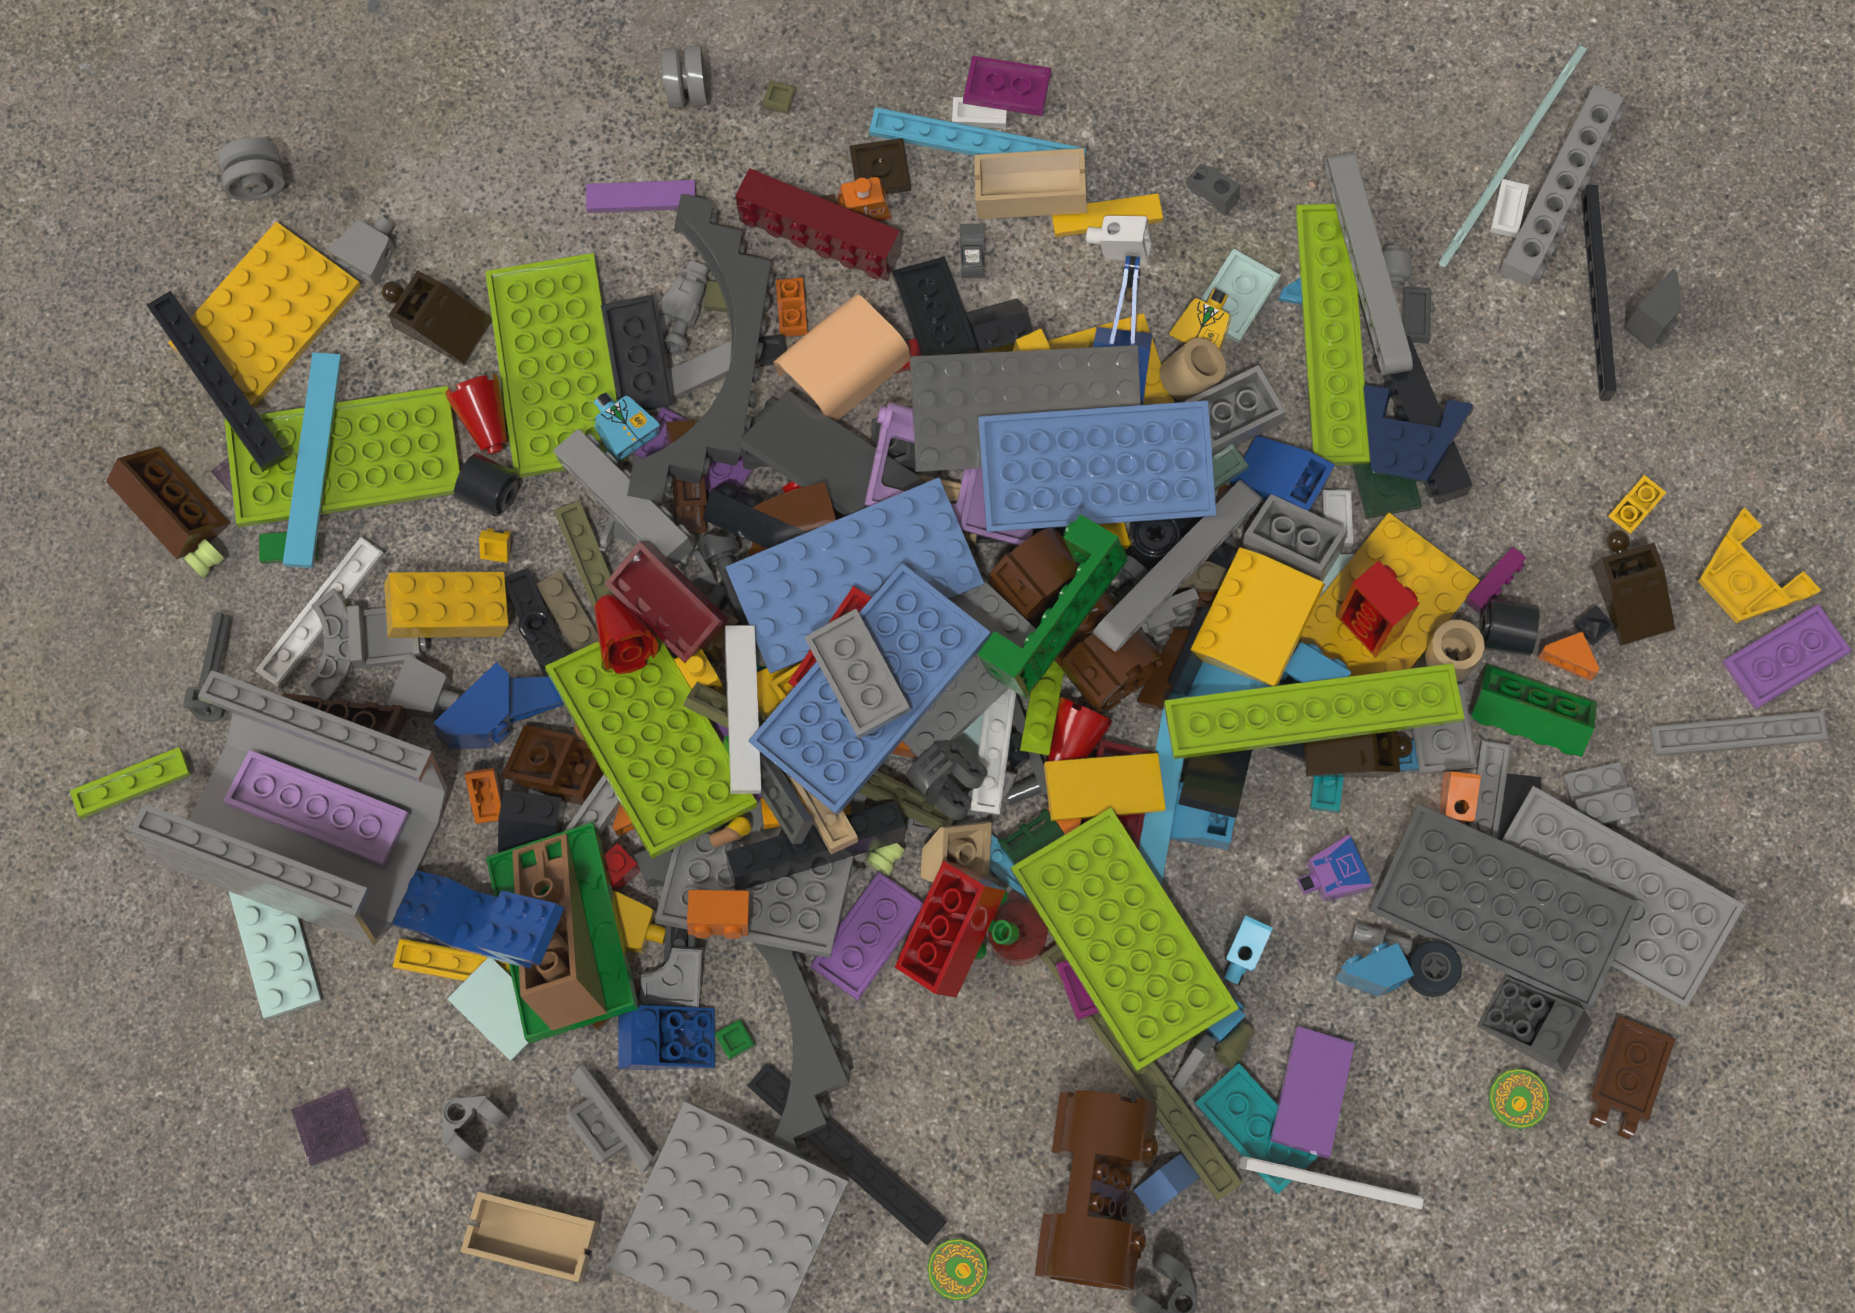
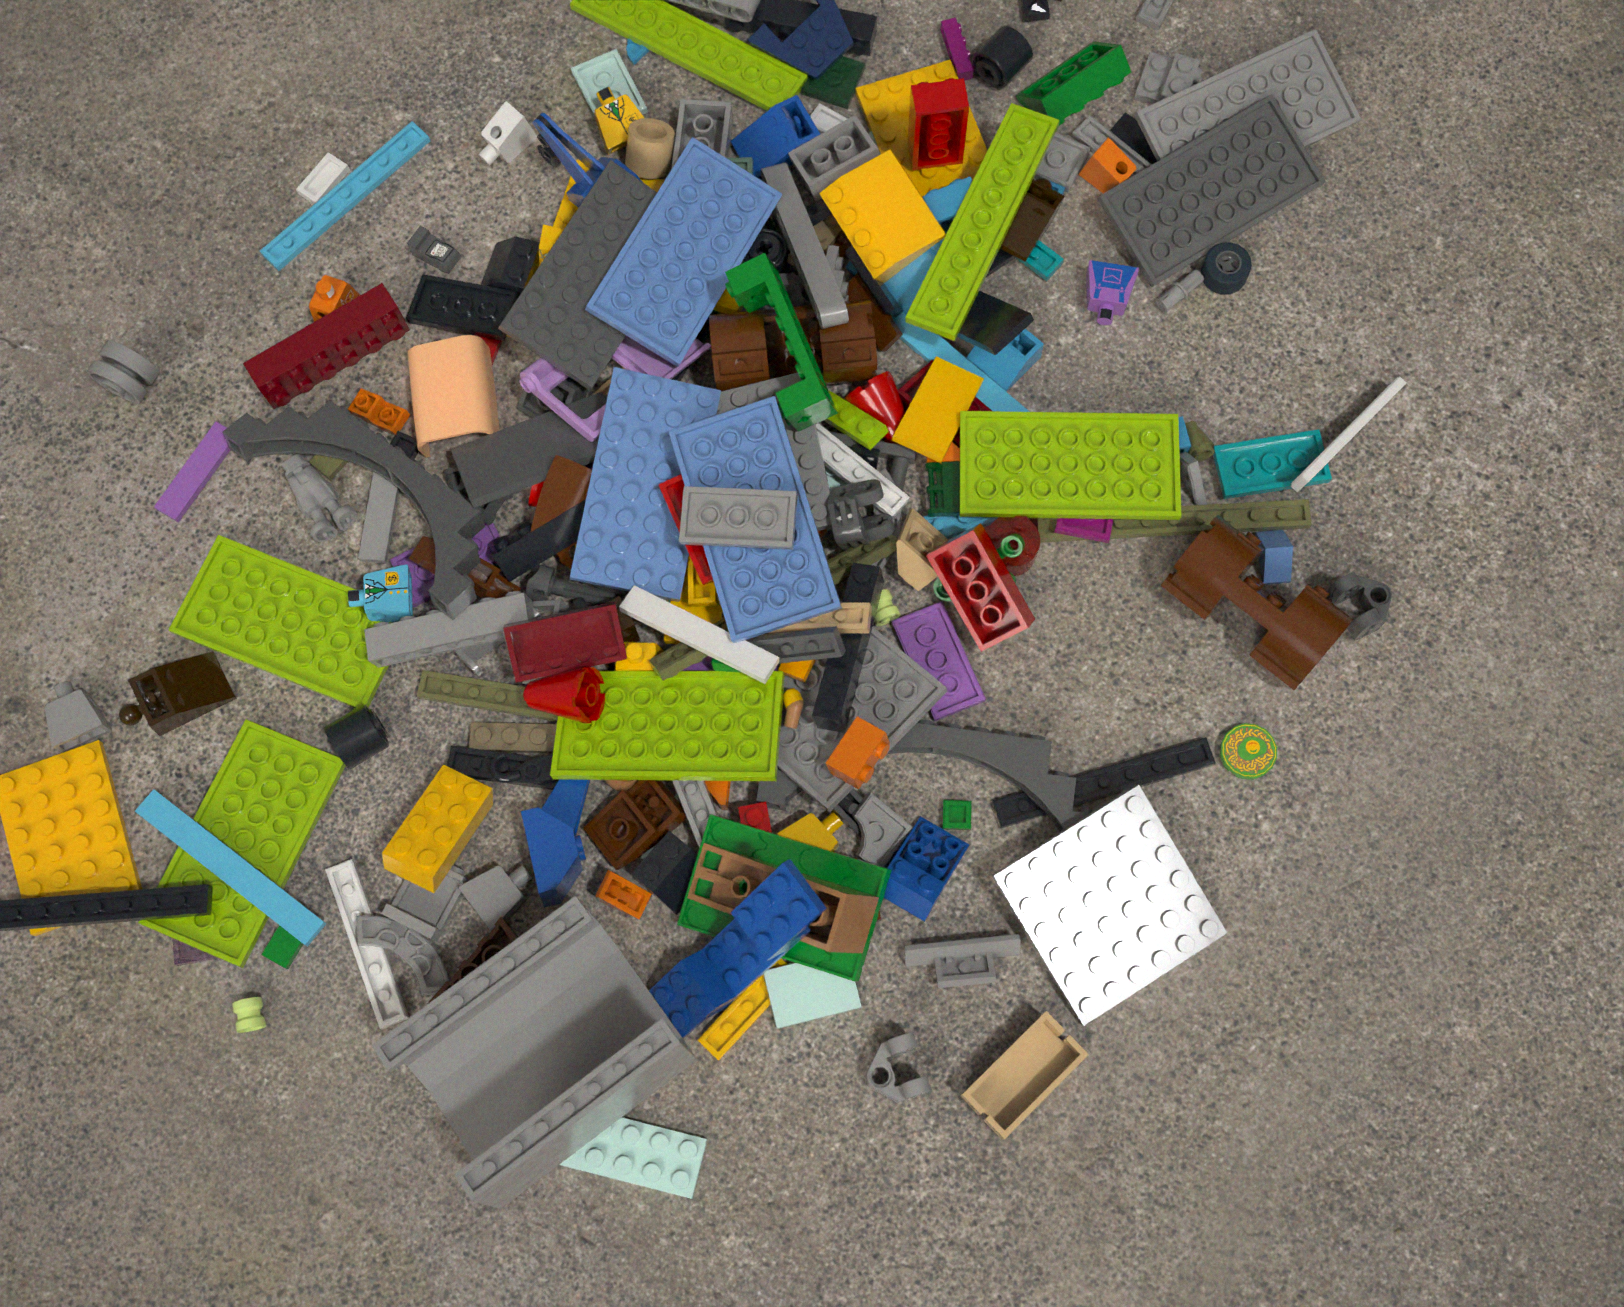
camera: 55 degrees left, 0 degrees up
(130, 782) = (405, 1197): lime plate -> none
(166, 500) = (173, 1018): reddish brown slope -> none
(211, 662) = (374, 1084): dark grey piece -> none
(316, 808) = (538, 1044): lavender plate -> none
(329, 1126) = (821, 1195): clear purple tile -> none
(481, 411) = (289, 703): red cone -> none
(495, 545) = (412, 762): yellow tile -> none
(638, 352) = (330, 546): black tile -> none
(779, 97) = (194, 317): olive tile -> none
(882, 160) = (305, 272): dark brown tile -> none
(1007, 85) = (317, 145): magenta tile -> none
(1030, 183) = (413, 172): tan piece -> none
(1074, 224) = (466, 157): yellow tile -> none
(1214, 187) = (512, 51): dark grey leg -> none
(1254, 937) = (1128, 383): medium azure torso -> none
(1312, 1092) = (1269, 407): medium lavender tile -> none
(1378, 972) = (1206, 302): dark azure slope -> none
(1457, 637) = (991, 101): tan piece -> none
(1518, 1099) = (1358, 272): tile -> none
(1536, 1023) = (1309, 225): dark grey slope -> none
(1571, 655) = (1051, 32): orange slope -> none
(1630, 1074) = (1387, 188): reddish brown tile -> none

